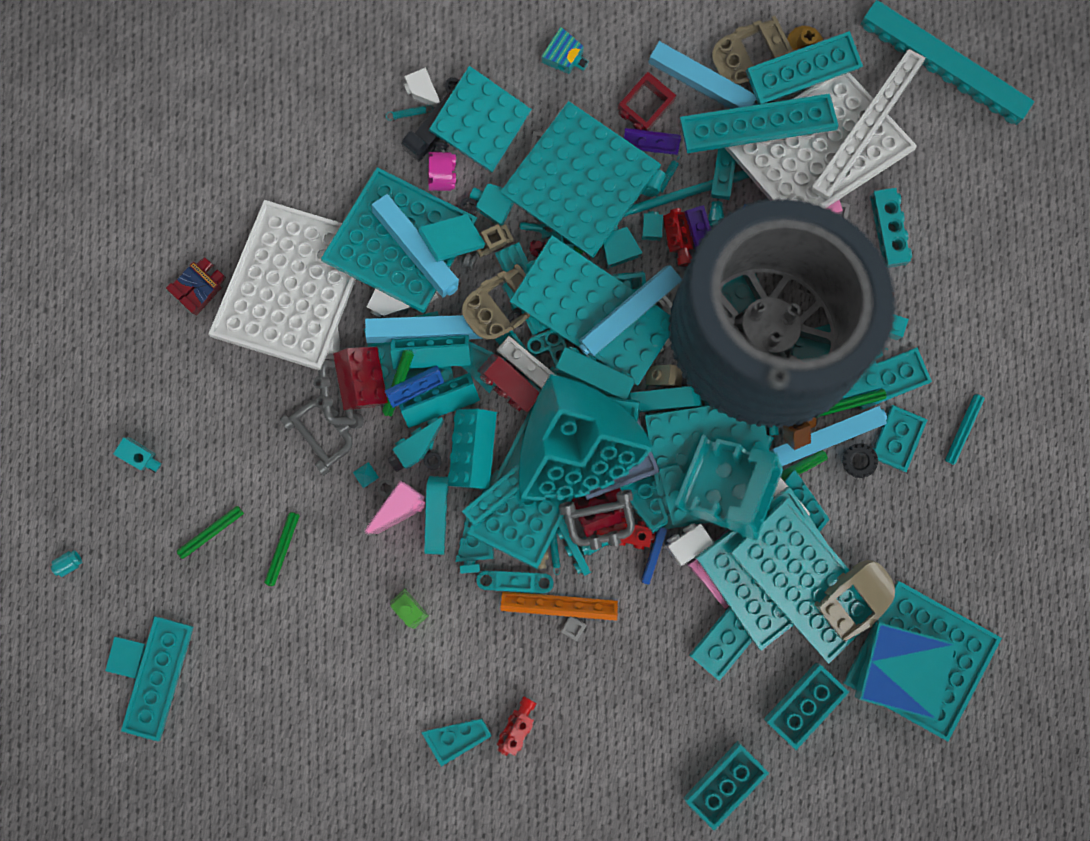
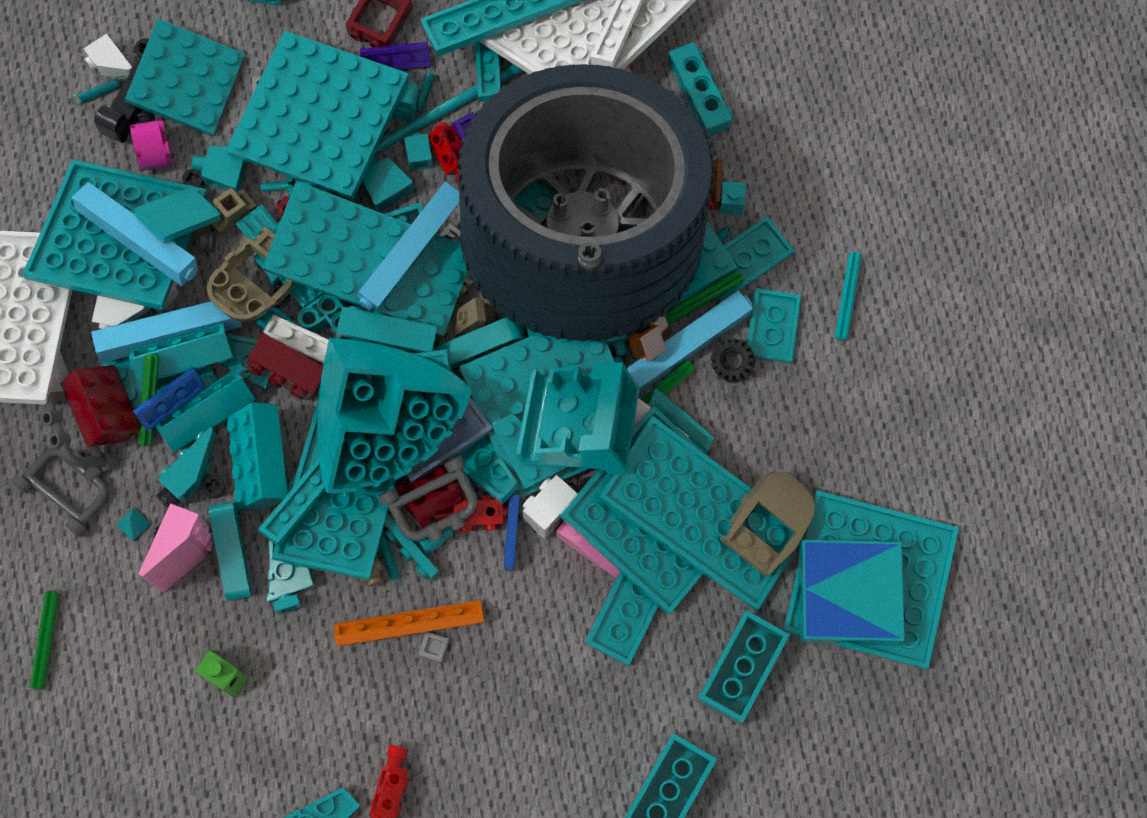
camera: 15 degrees left, 10 degrees down
(515, 581) = (347, 607): teal plate -> none

